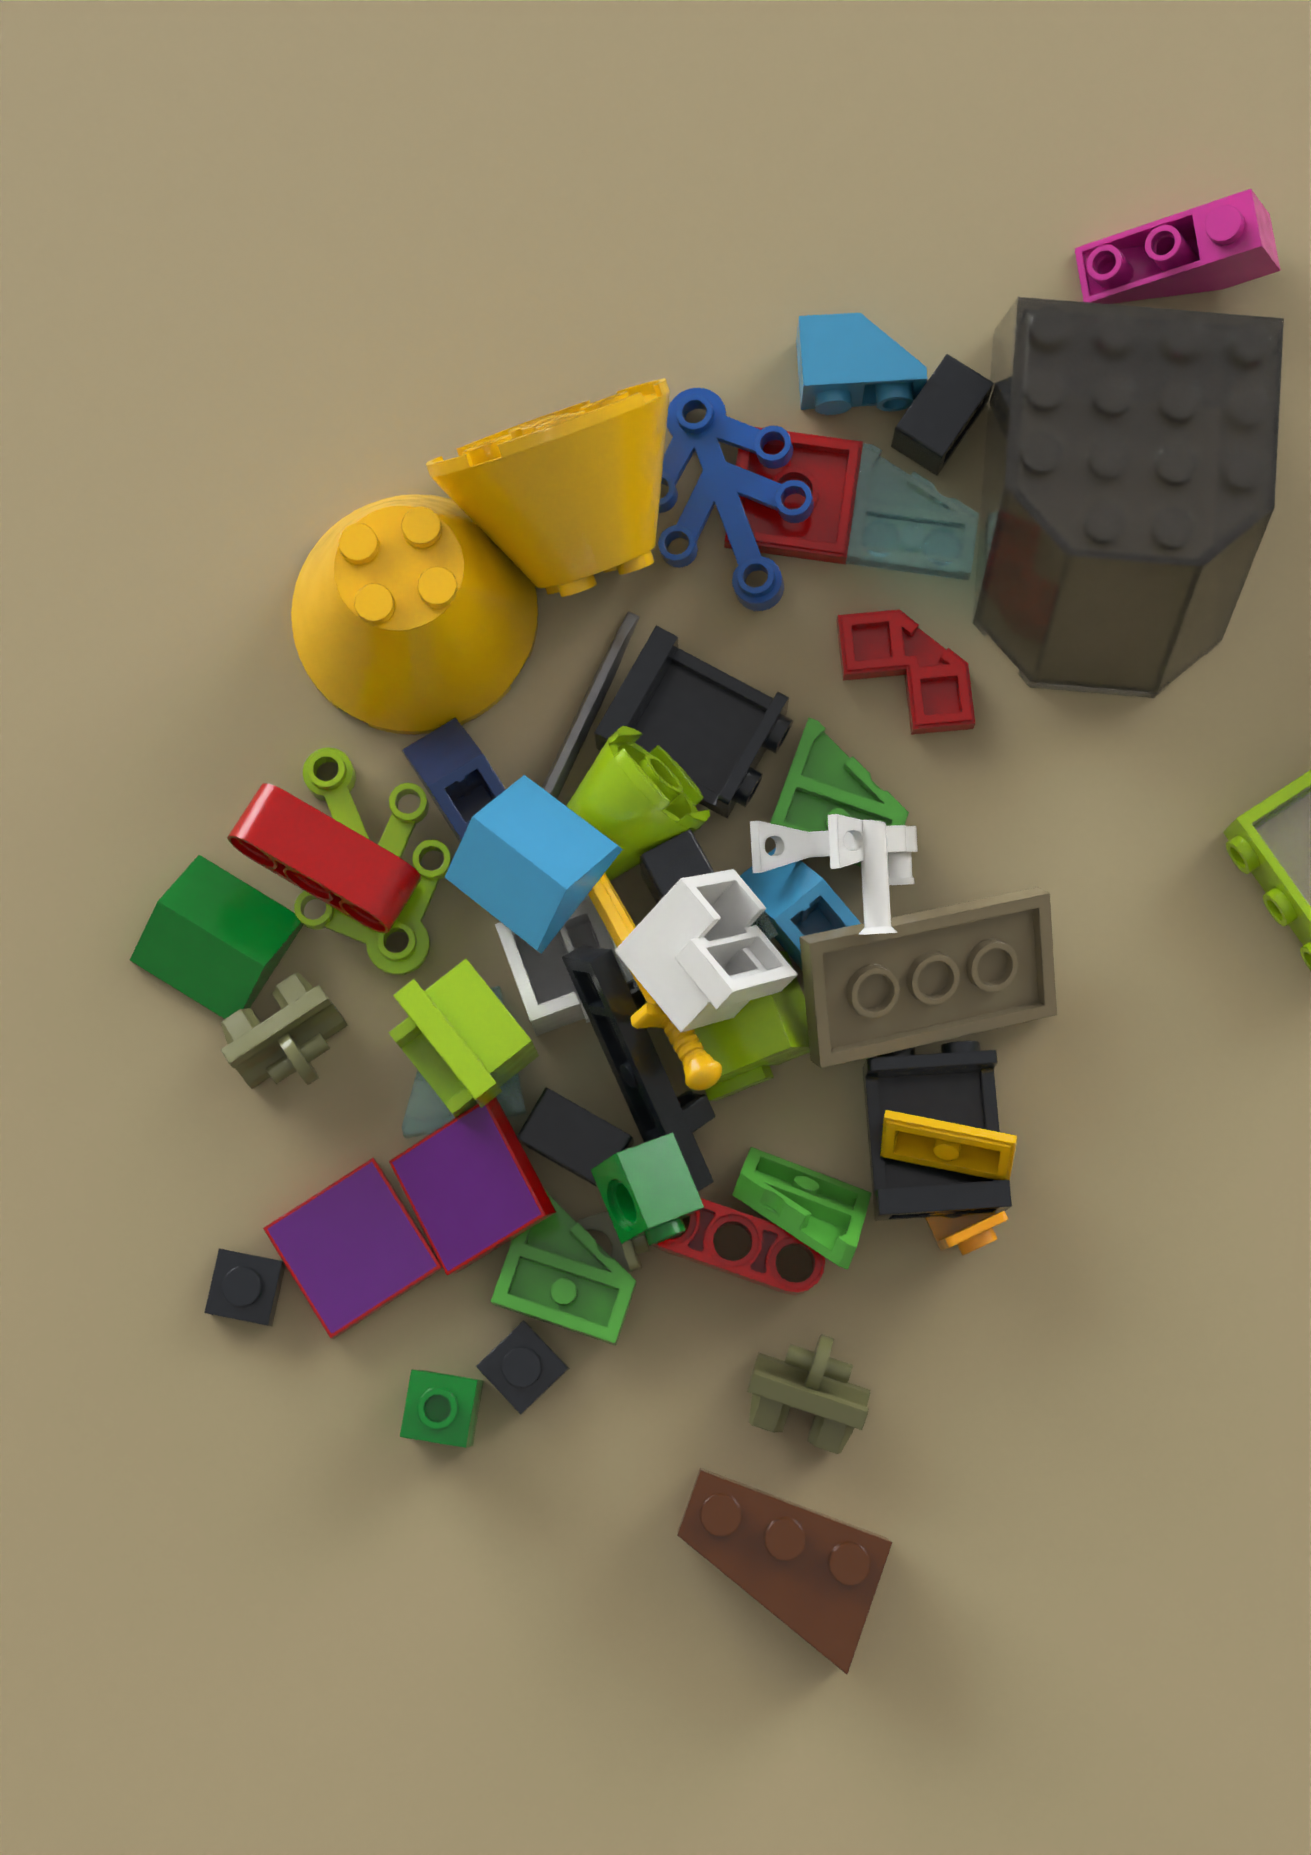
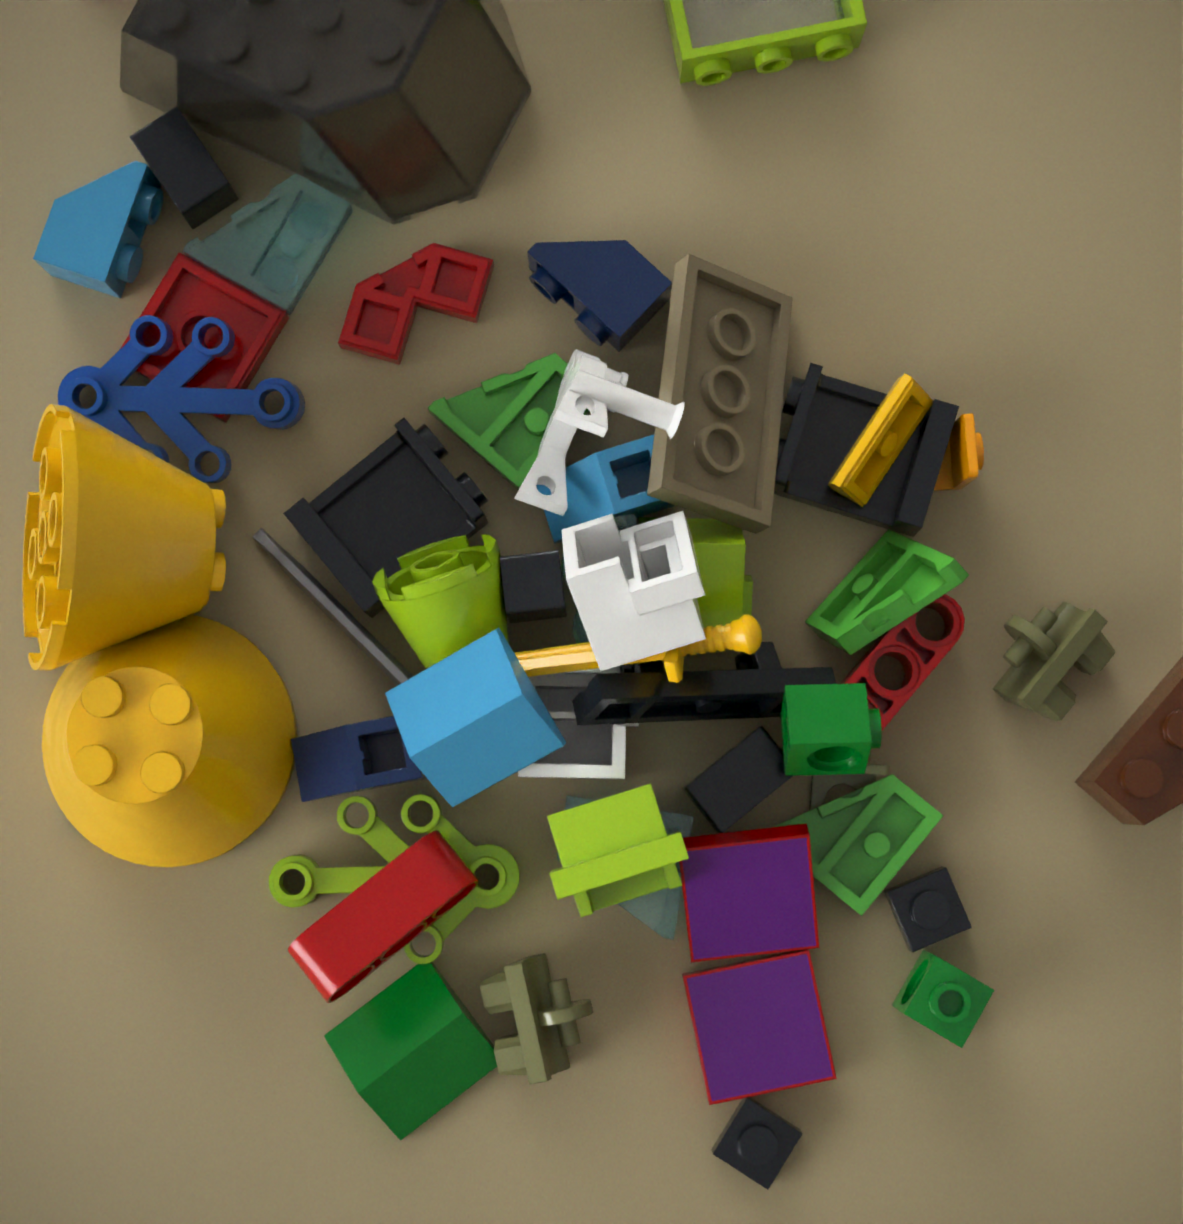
camera: 70 degrees left, 5 degrees up
(995, 832) = (603, 283): none -> dark blue slope

